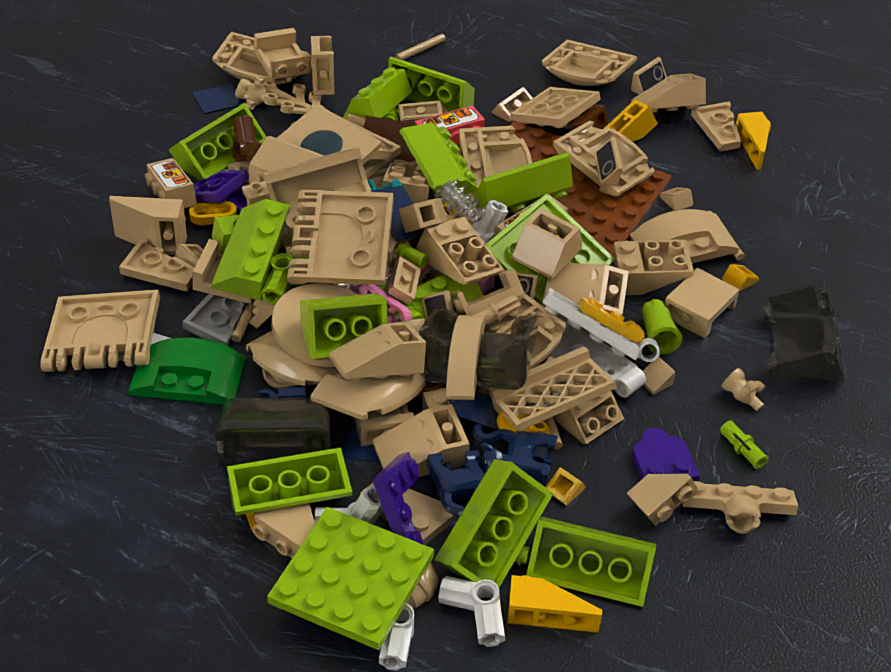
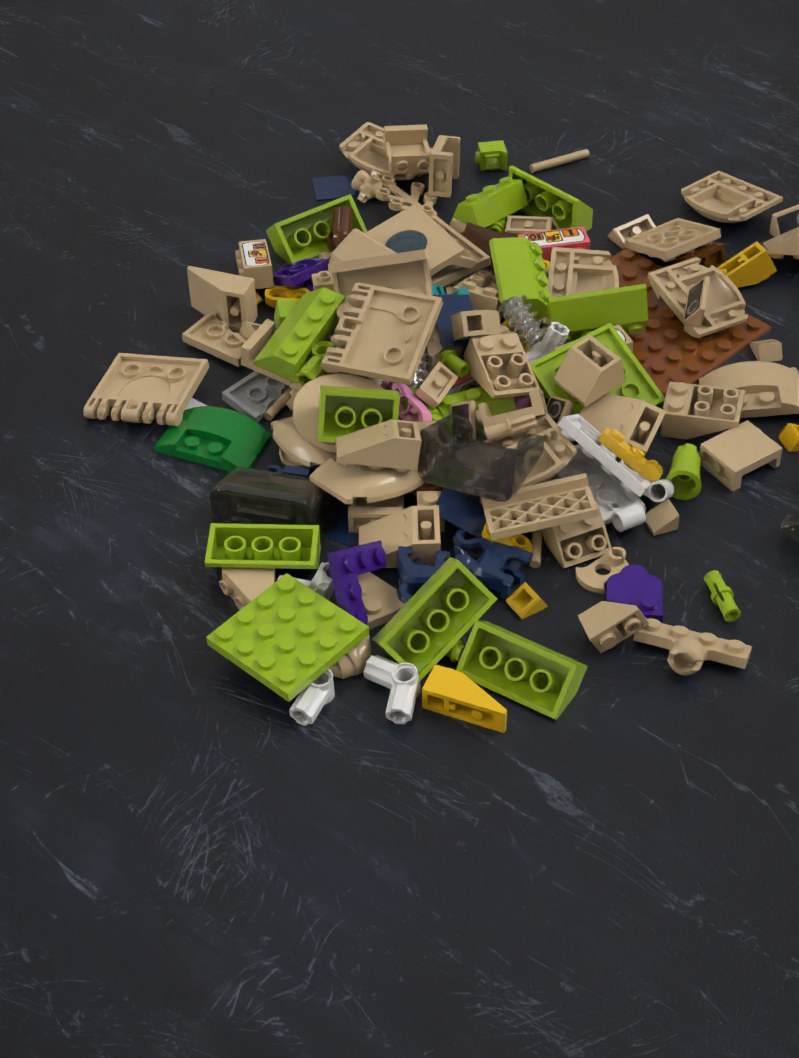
camera: 20 degrees right, 0 degrees up
(358, 50) = (491, 155): none -> lime window
(464, 357) = (458, 460): tan slope -> none
(627, 428) = (613, 561): none -> tan piece
(744, 390) = (746, 545): tan piece -> none

